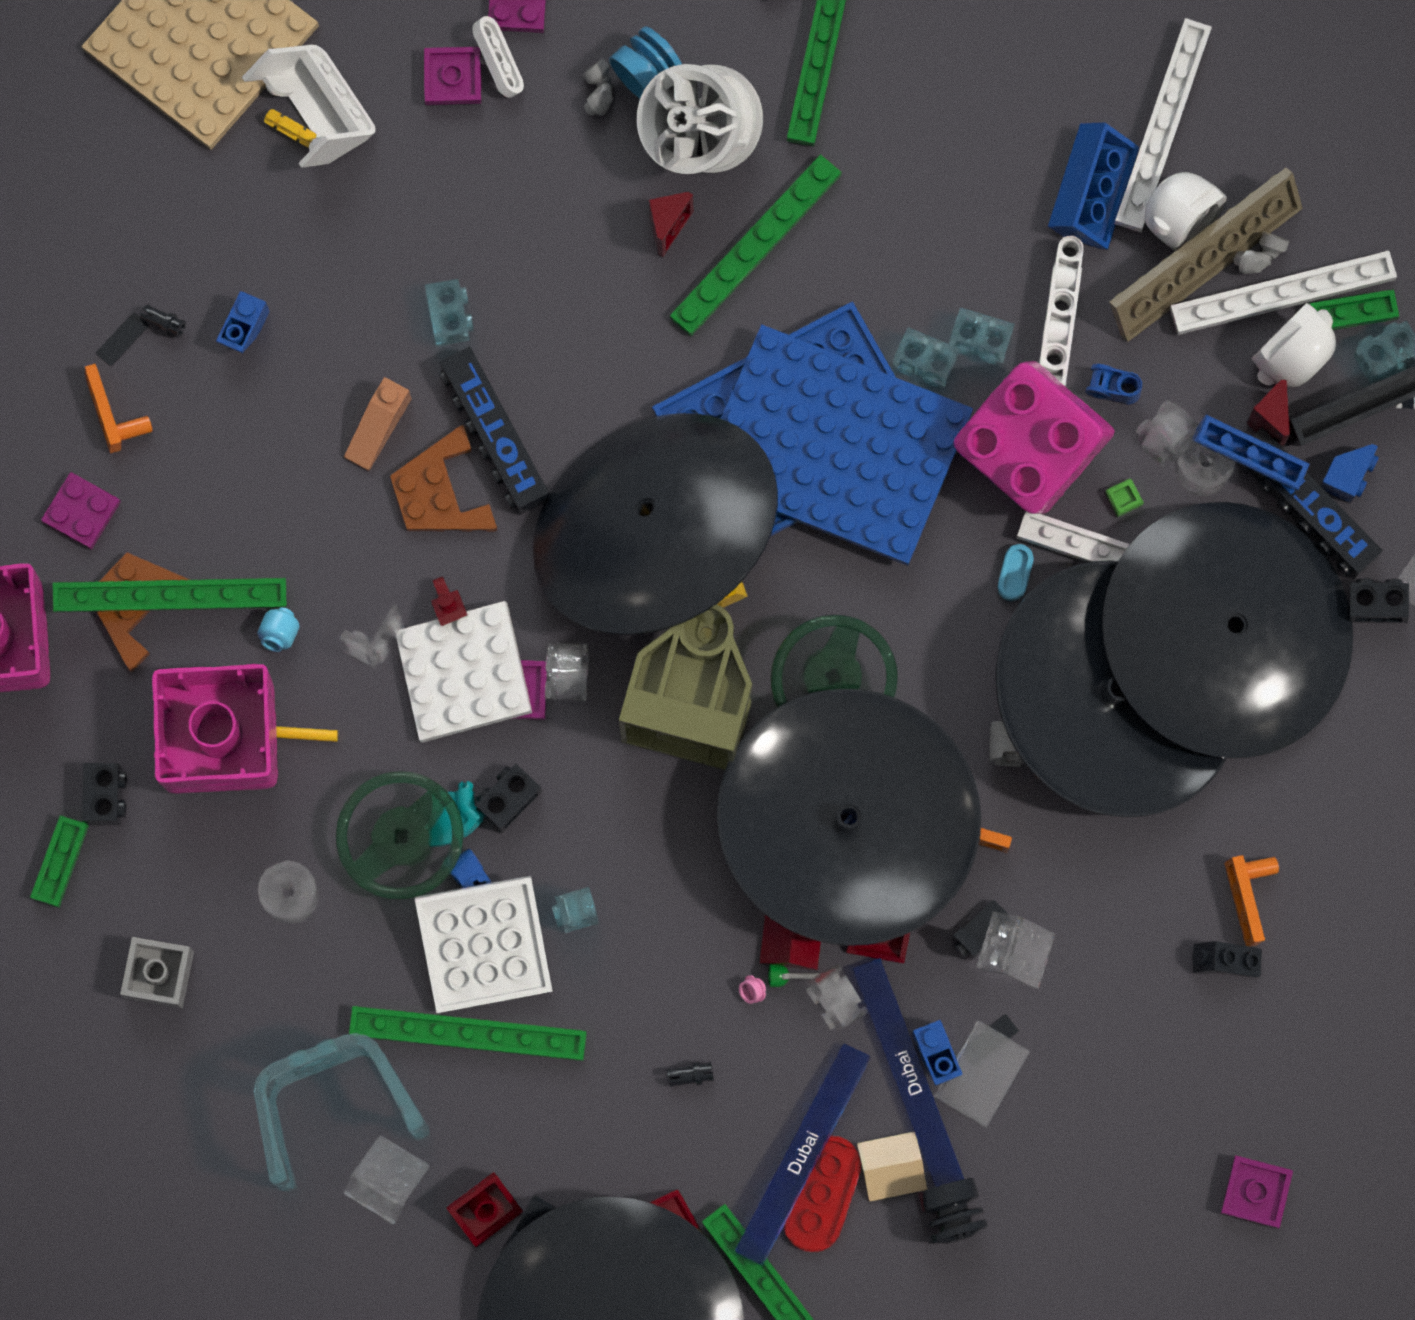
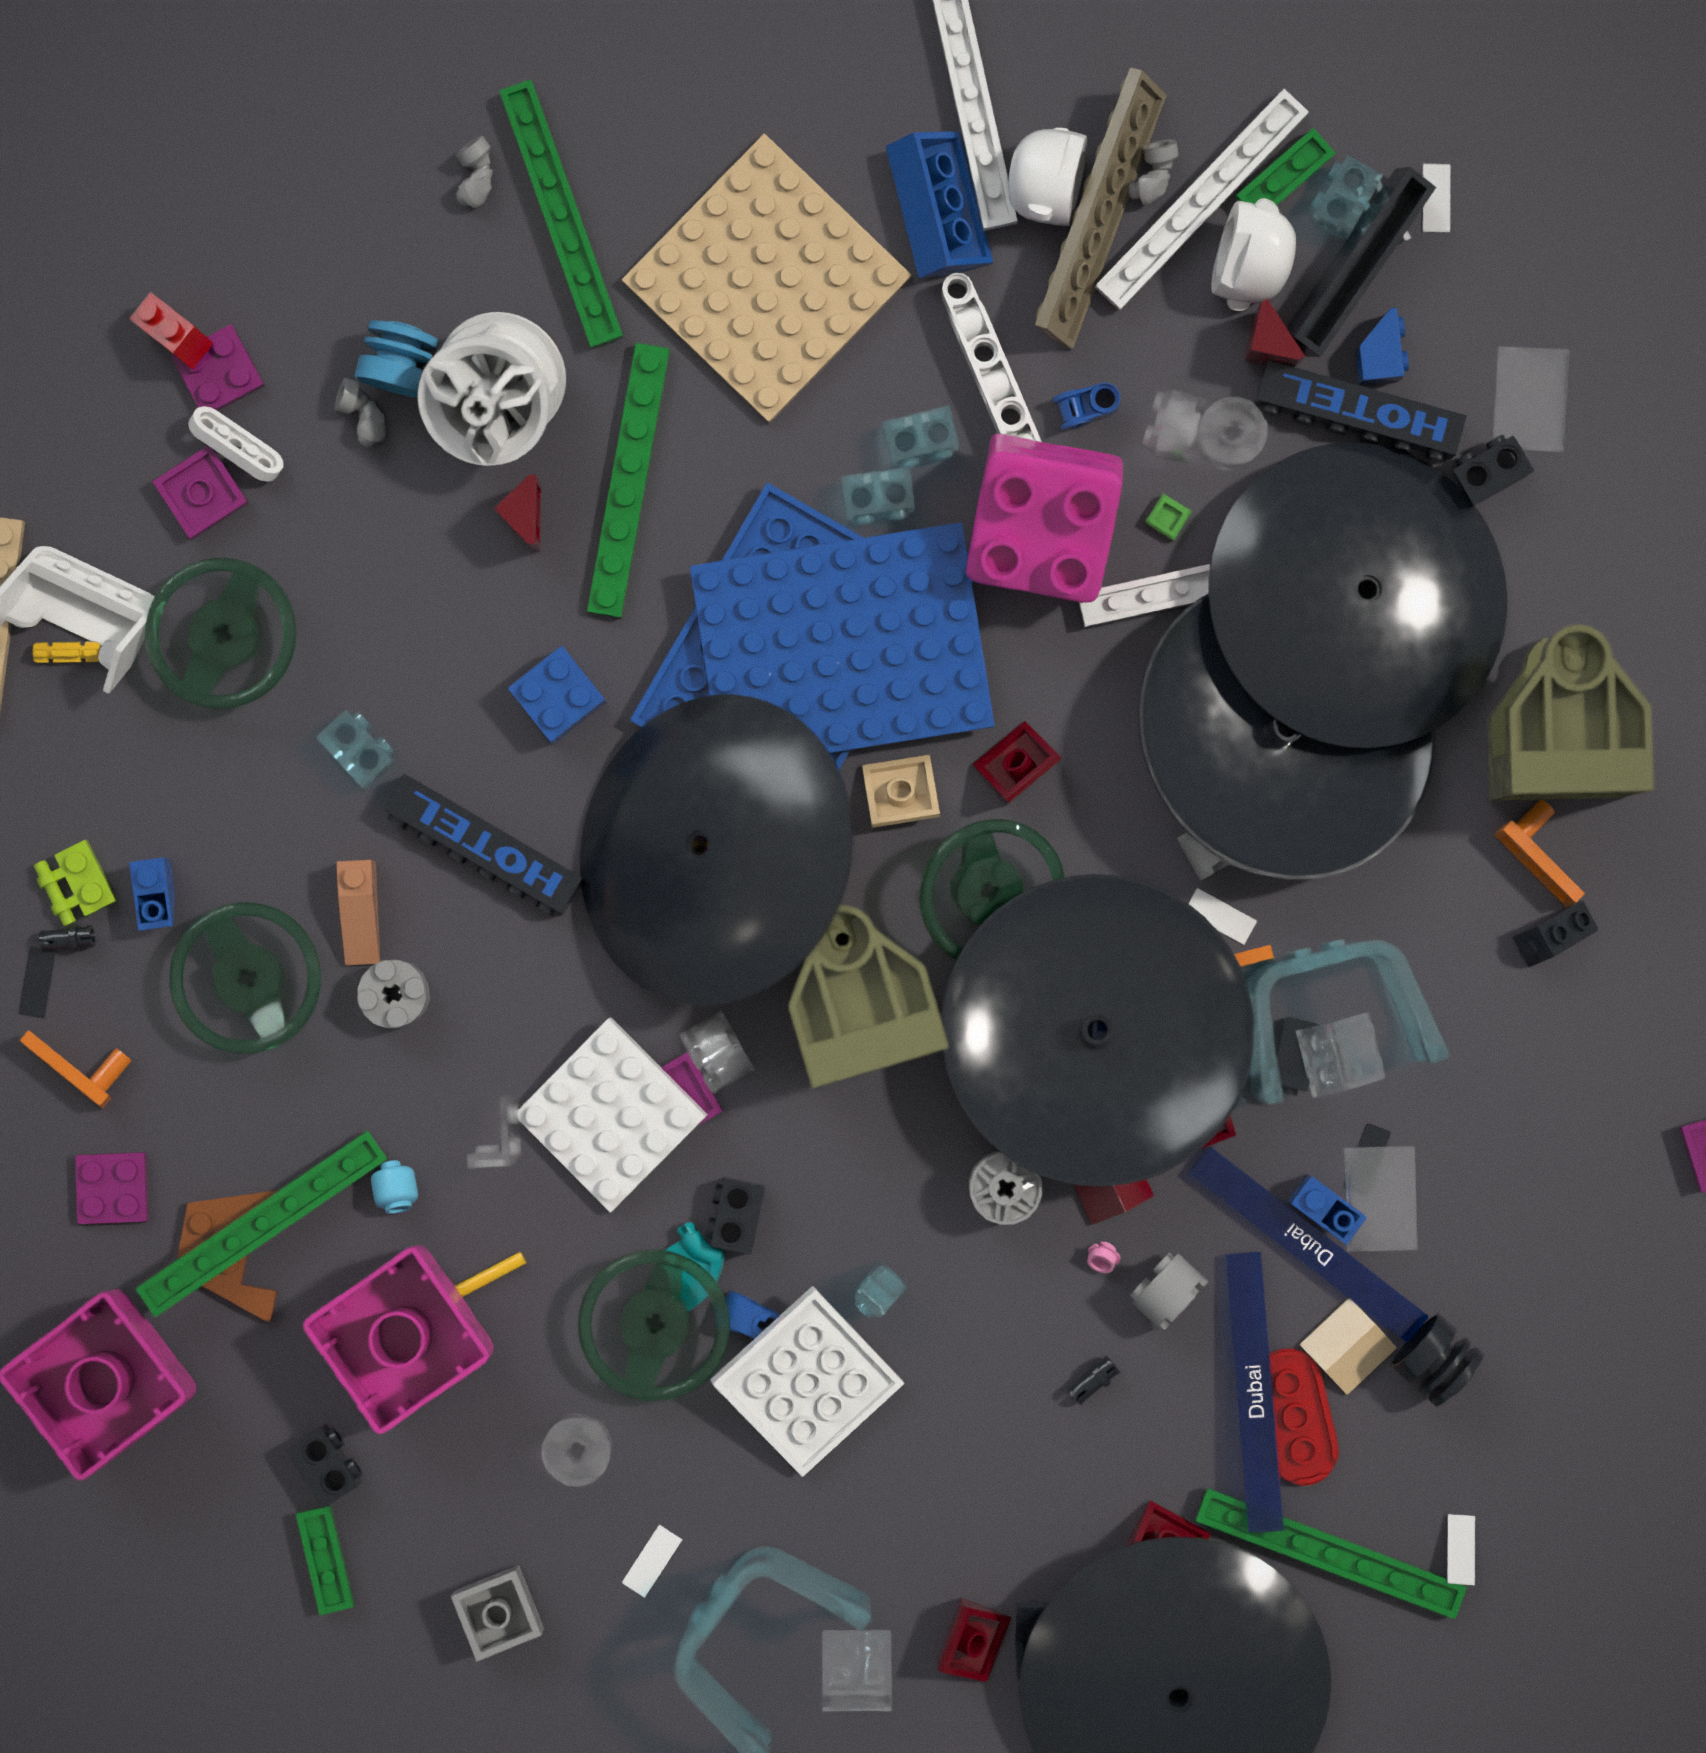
camera: 35 degrees left, 10 degrees up
(202, 287) = (85, 879): none -> lime plate
(274, 404) = (233, 956): none -> clear green piece
(290, 1009) = (652, 1561): none -> white sticker
(360, 479) = (388, 974): none -> light grey brick
(421, 167) = (233, 609): none -> clear green piece
(427, 493) = (455, 950): dark orange wing -> none
(449, 604) = (552, 1057): dark red plate -> none
(468, 1033) = (846, 1477): green plate -> none
(612, 359) = (557, 695): none -> blue brick
(699, 905) = (984, 1187): none -> light grey wheel
(779, 975) = (1121, 1226): green hinge -> none
(784, 1039) = (1169, 1291): none -> light grey brick
(813, 571) = (901, 791): none -> tan slope
(836, 997) = (1193, 1215): clear brick -> none
(909, 603) = (1016, 762): none -> dark red slope
(940, 166) = (766, 278): none -> tan plate
(991, 802) = (1223, 917): none -> white sticker
(1015, 572) = (1105, 664): medium azure tile -> none
(1046, 867) = (1406, 996): none -> clear light blue windscreen
(1250, 452) = (1275, 398): blue brick -> none
(1324, 808) = (1570, 725): none -> olive brick

